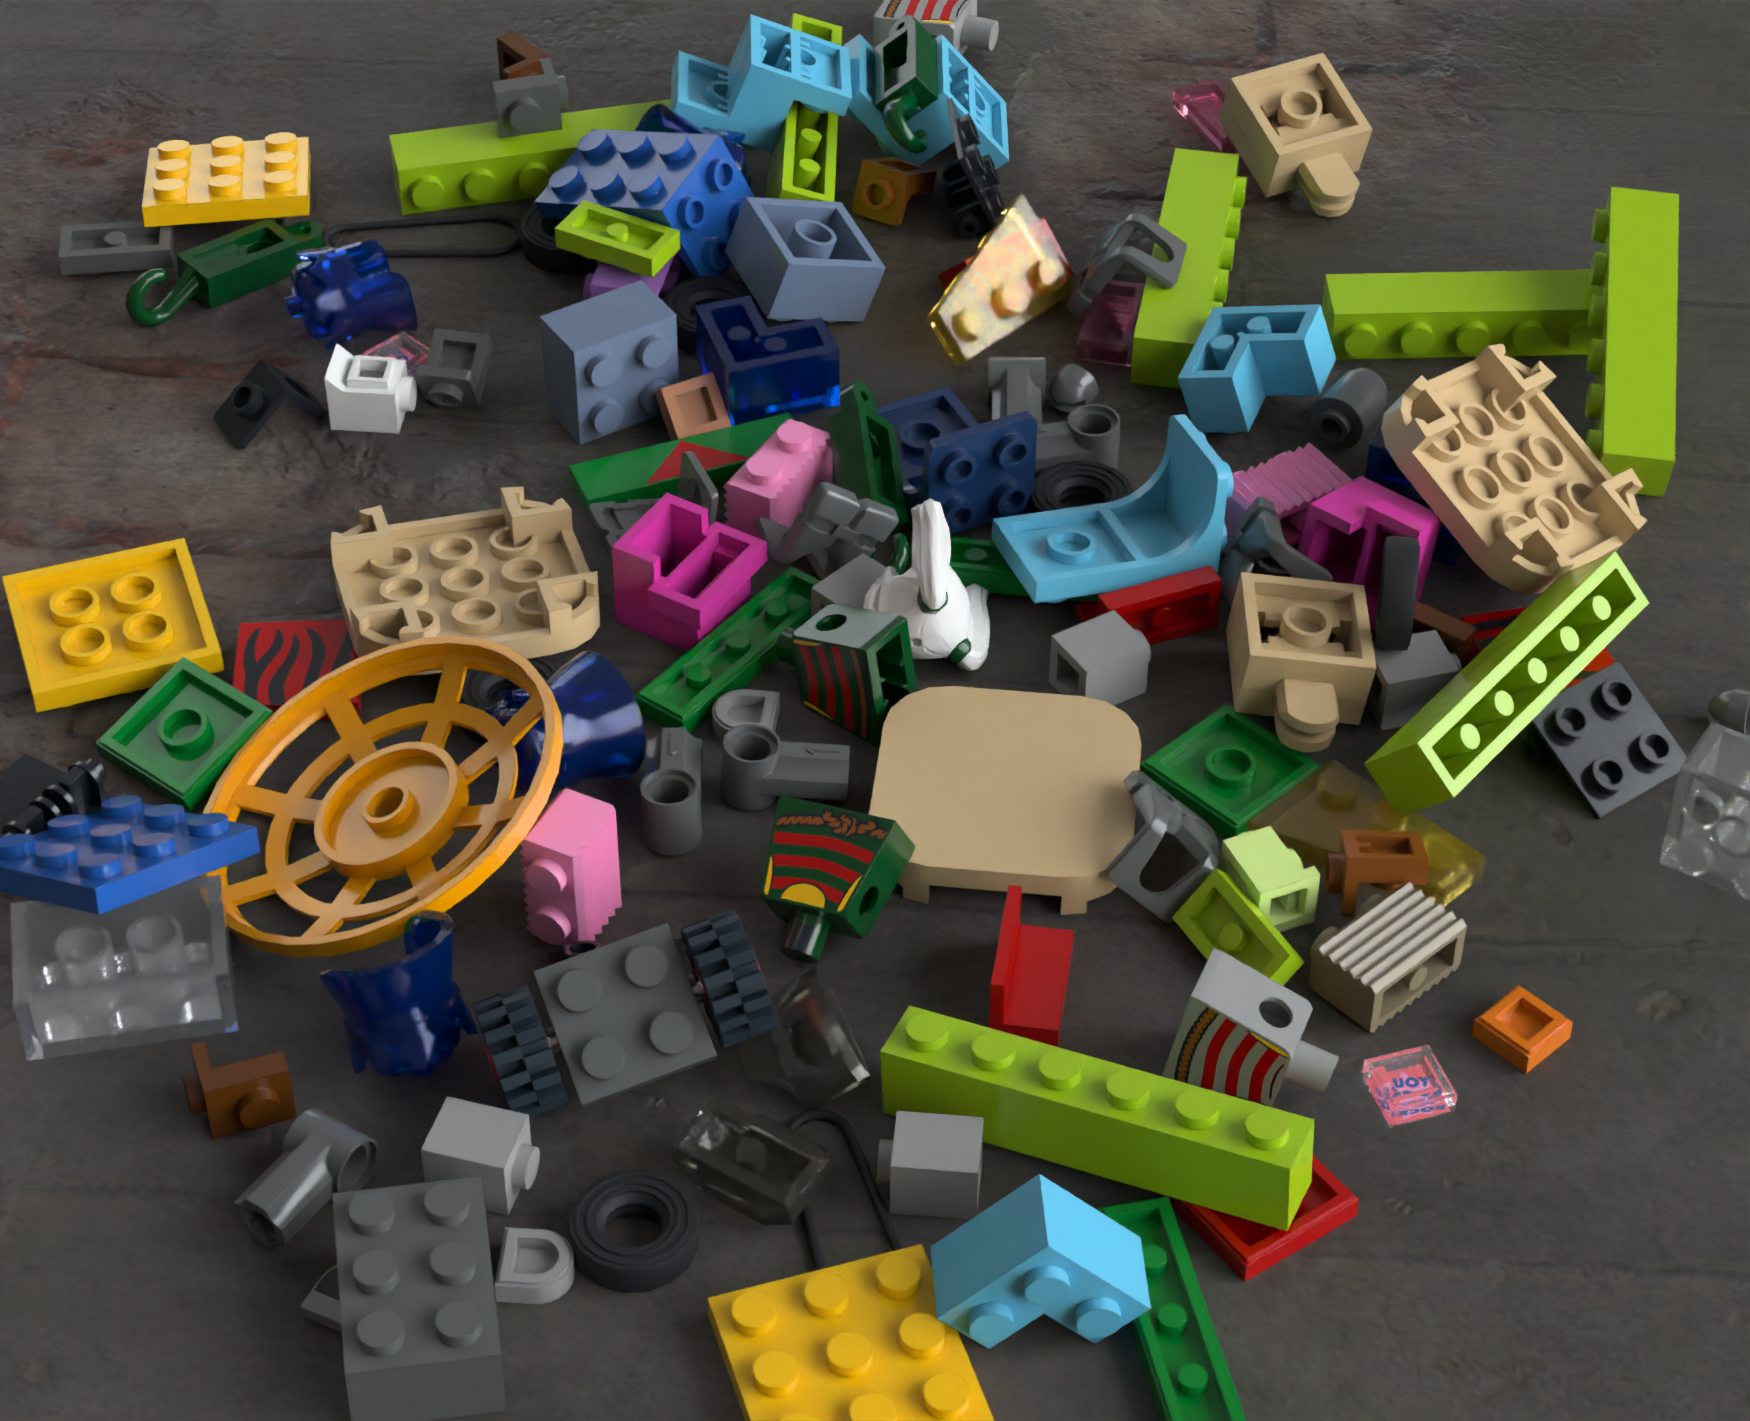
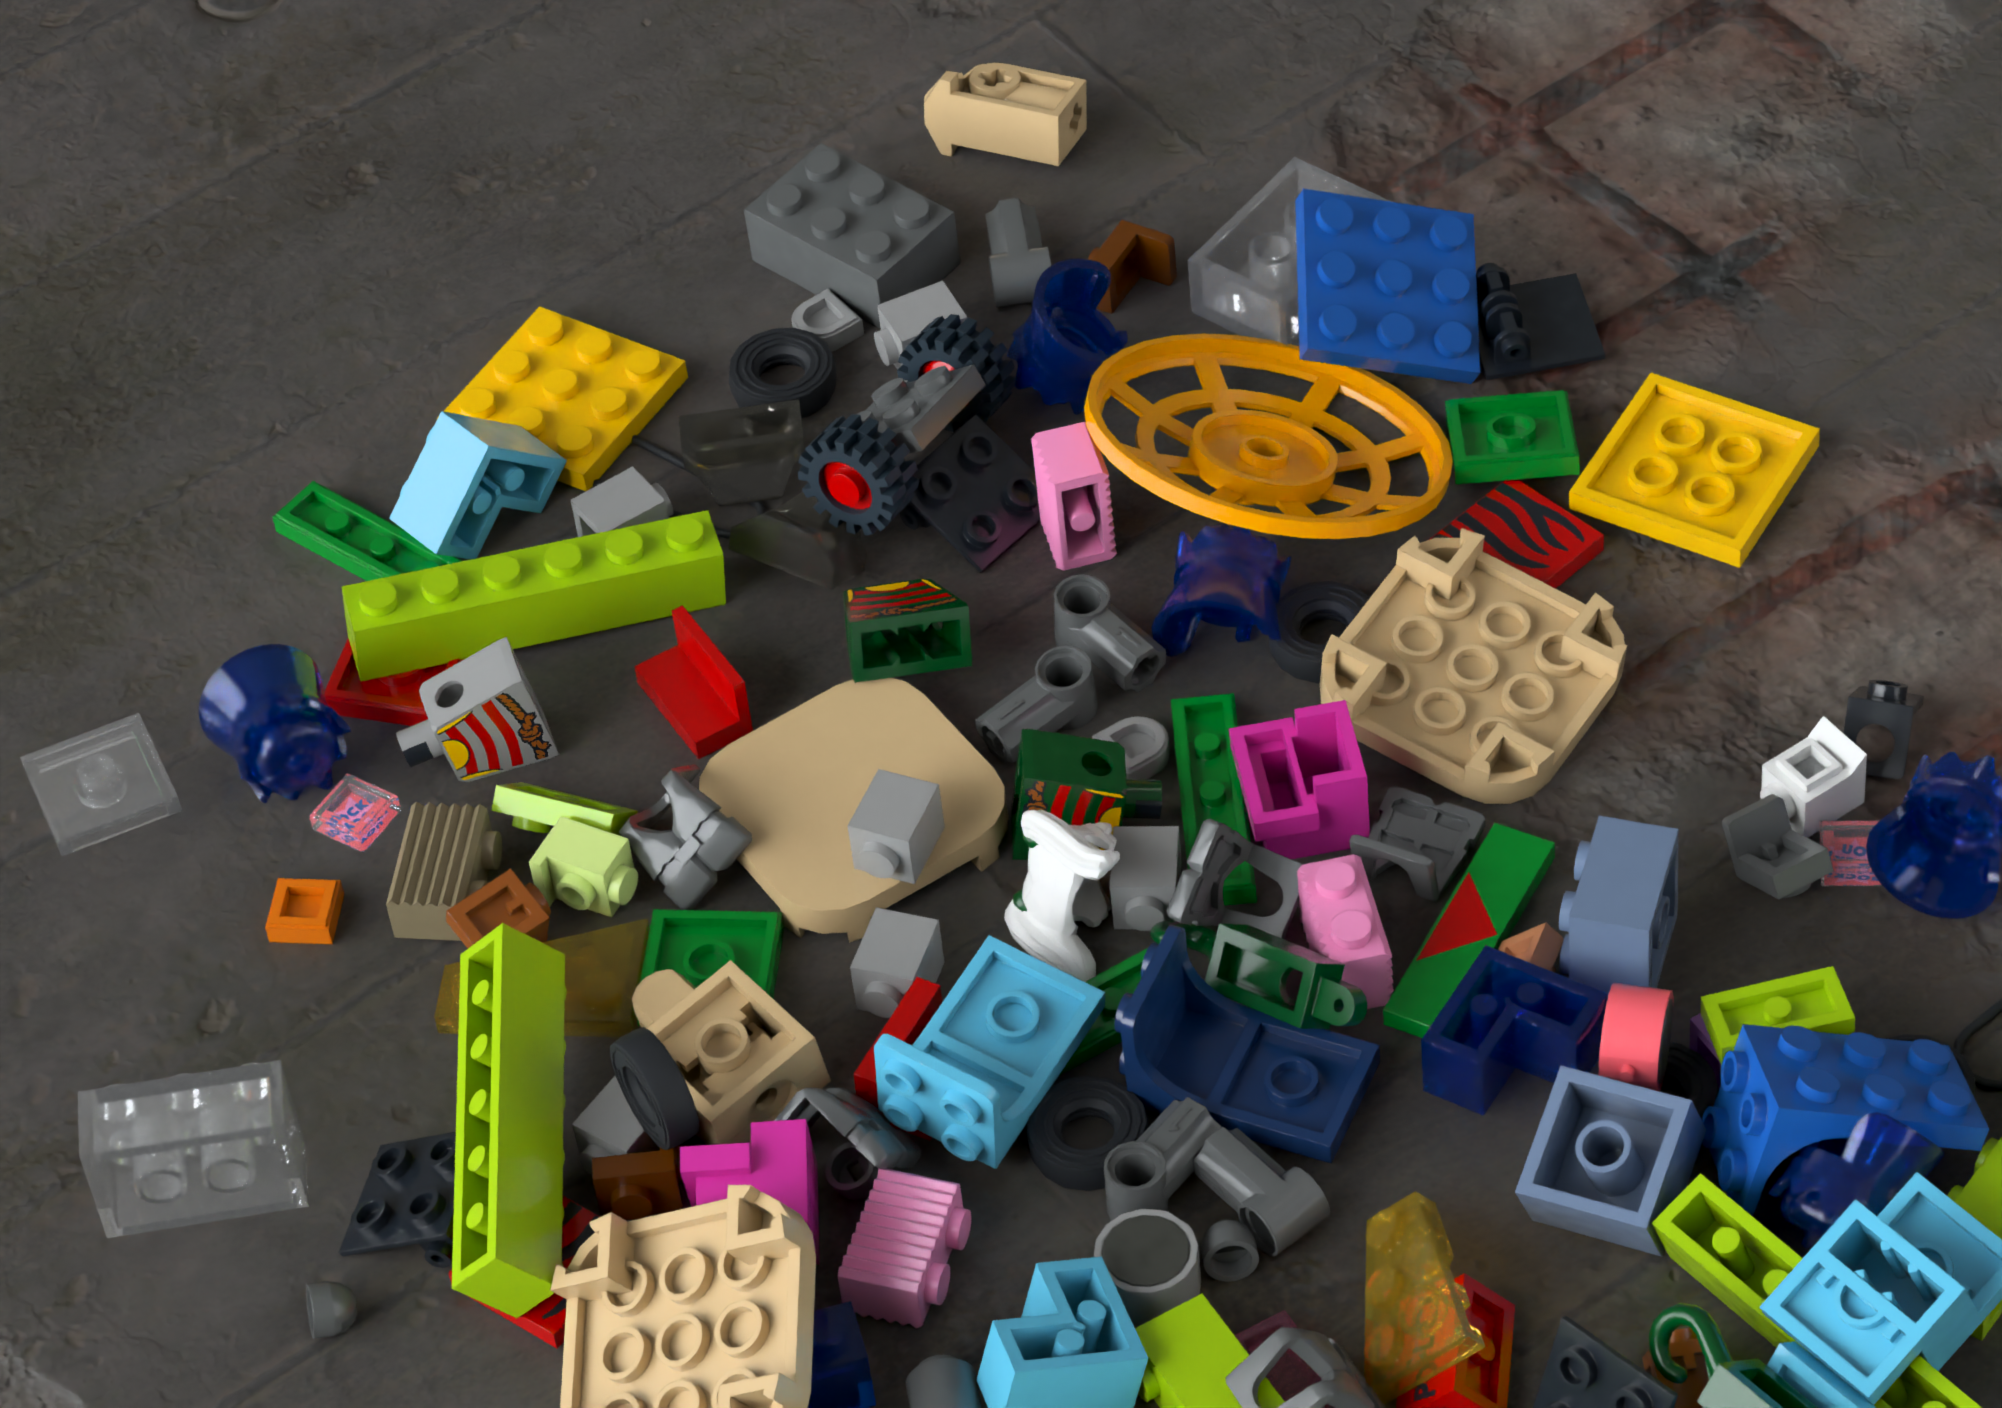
camera: 145 degrees right, 5 degrees up
(113, 1326) = (1007, 112): none -> tan piece
(704, 273) = (1636, 1035): none -> coral piece
(1019, 691) = (896, 826): none -> light grey brick
(1144, 398) = (1150, 1261): none -> piece
(1440, 1135) = (274, 720): none -> clear blue hat
(1629, 1272) = (100, 784): none -> clear plate

